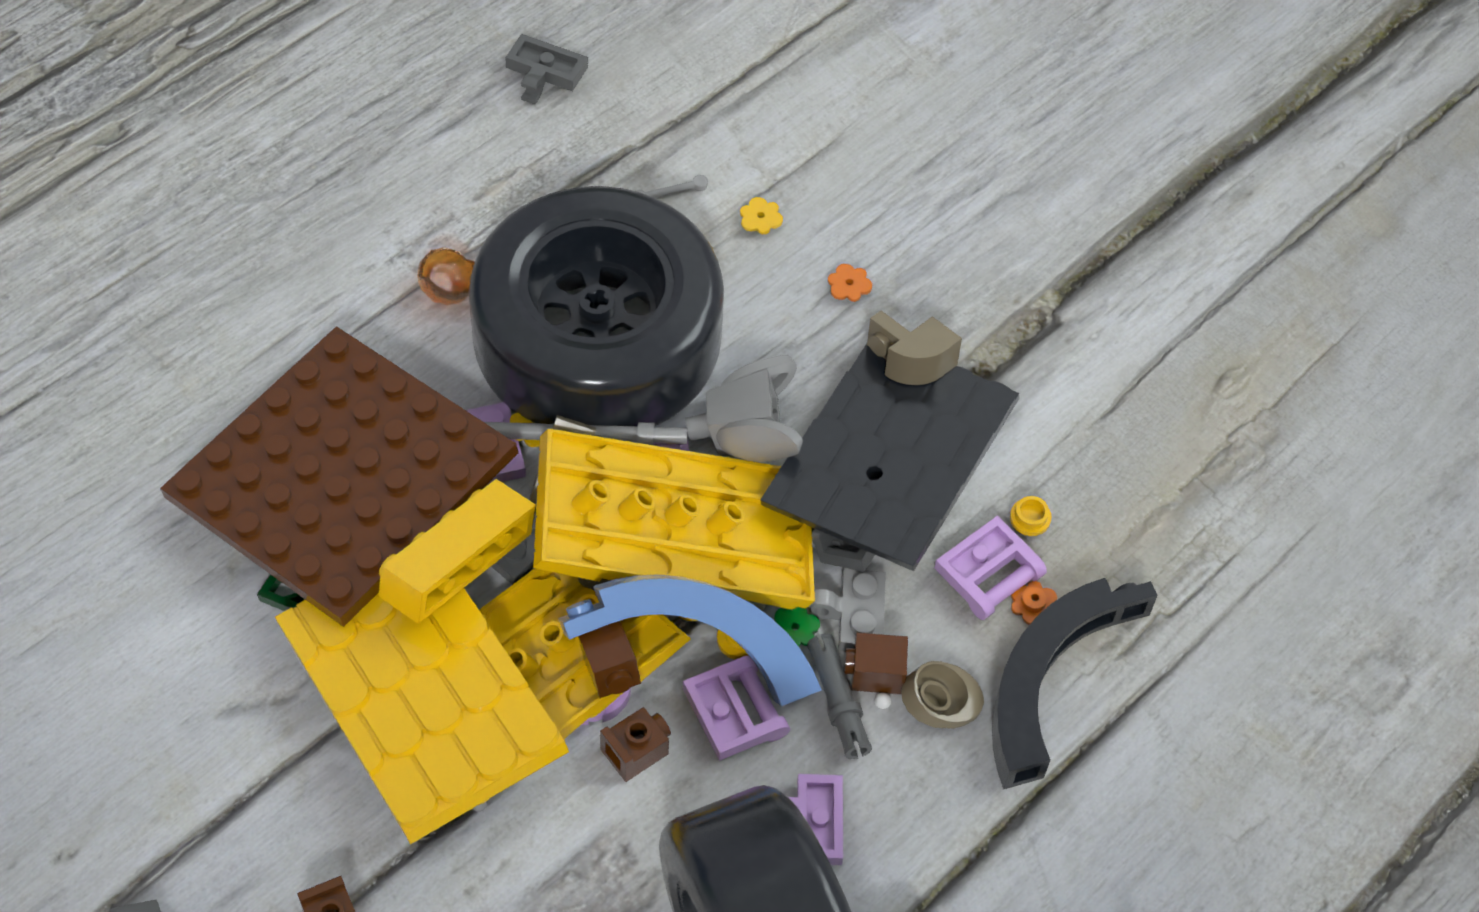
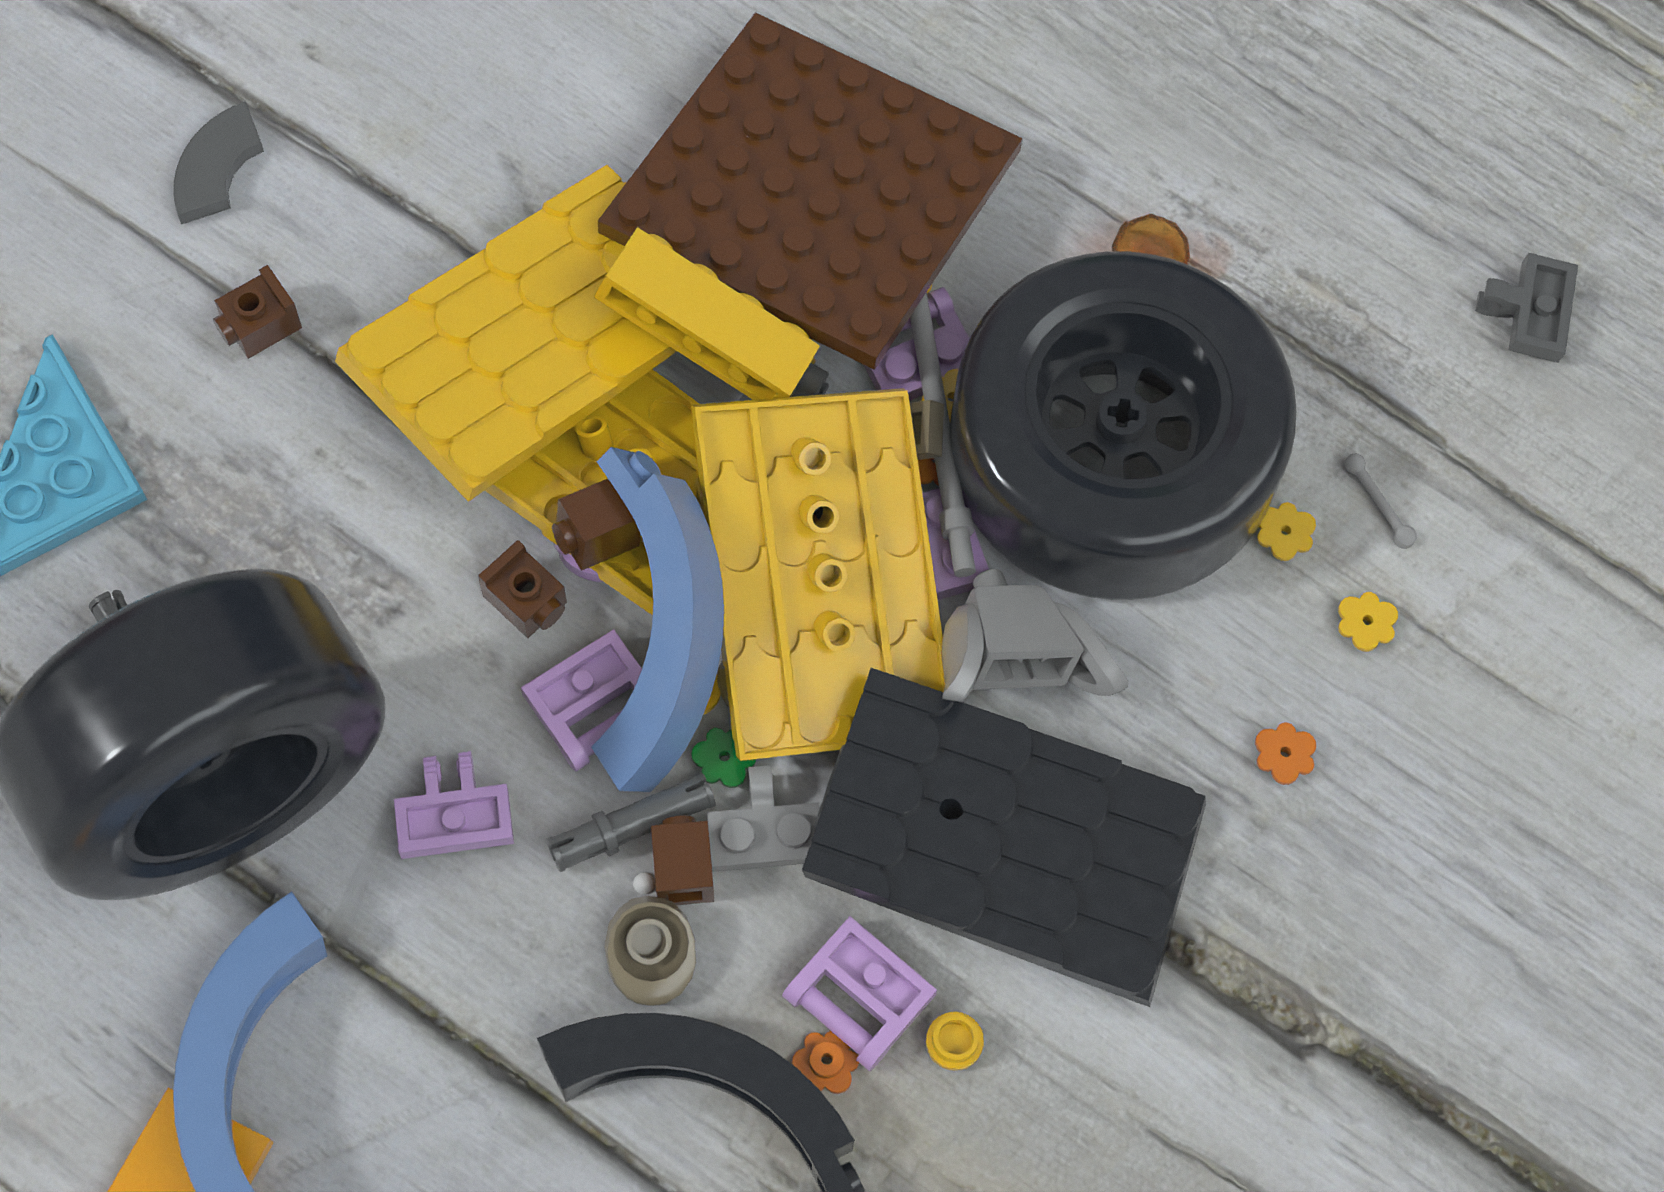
camera: 80 degrees right, 10 degrees up
(915, 355) = (1161, 848): dark tan brick -> none

